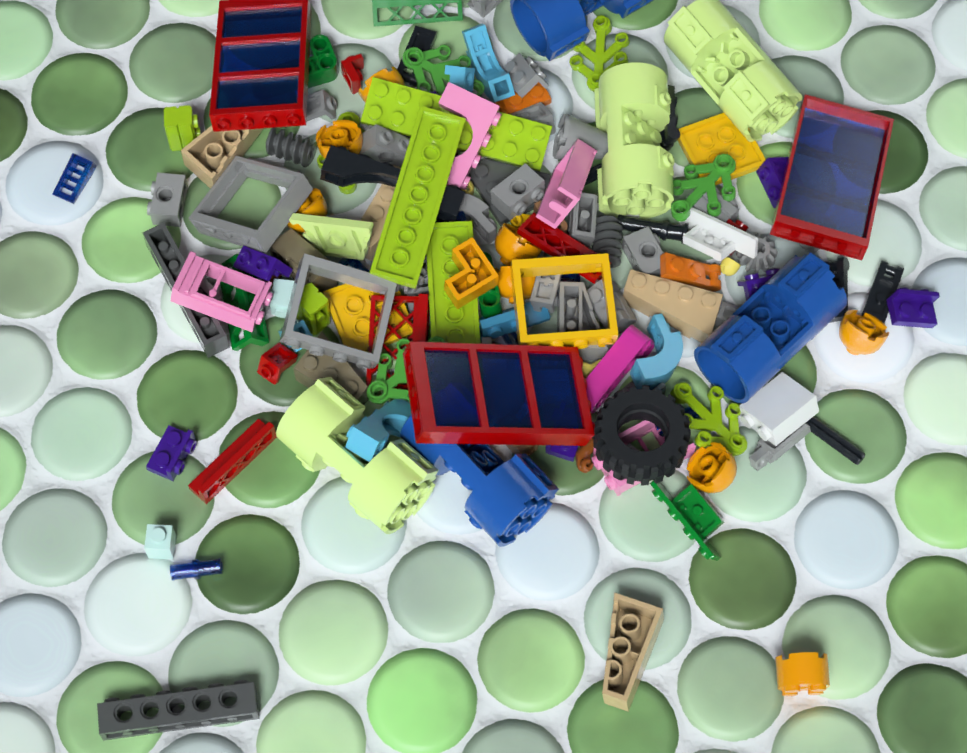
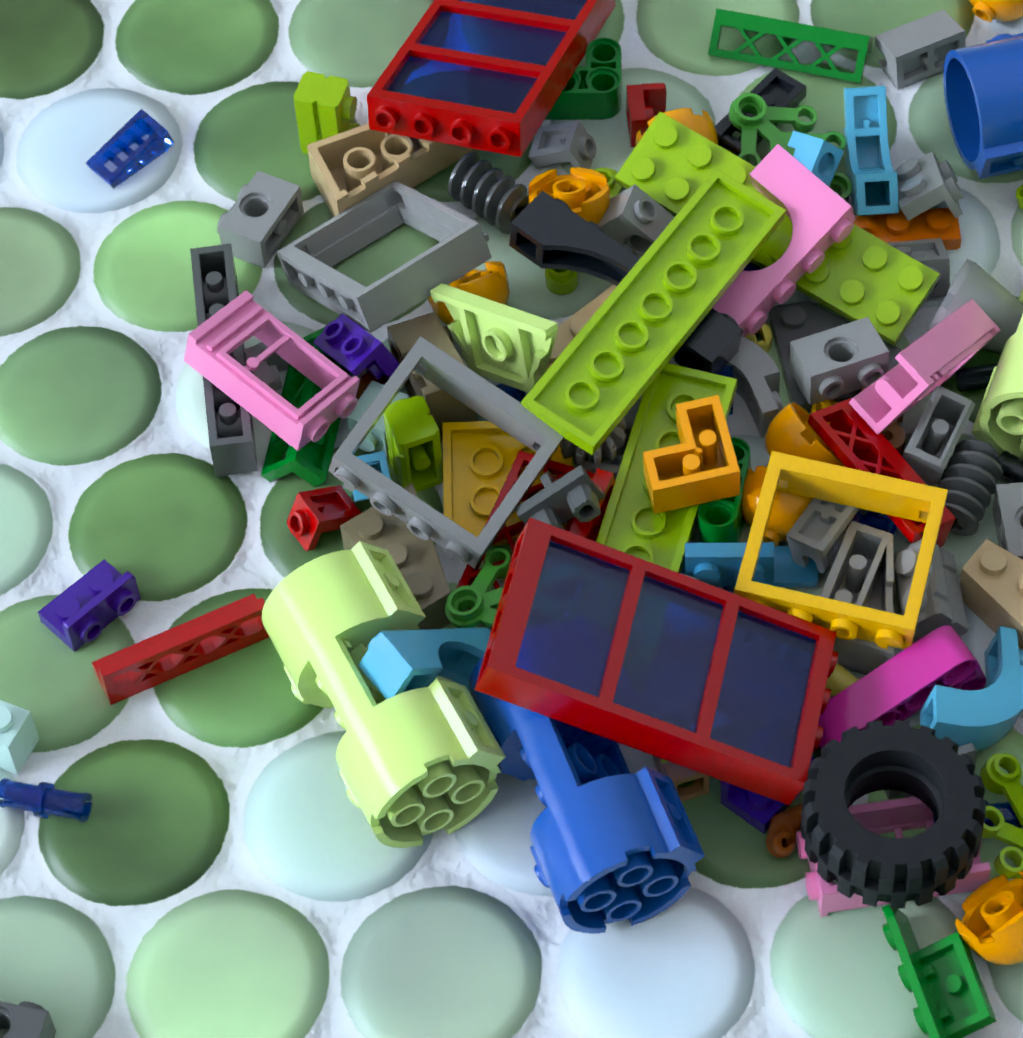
camera: 25 degrees right, 10 degrees down
(407, 318) = (563, 499): none -> dark grey hips

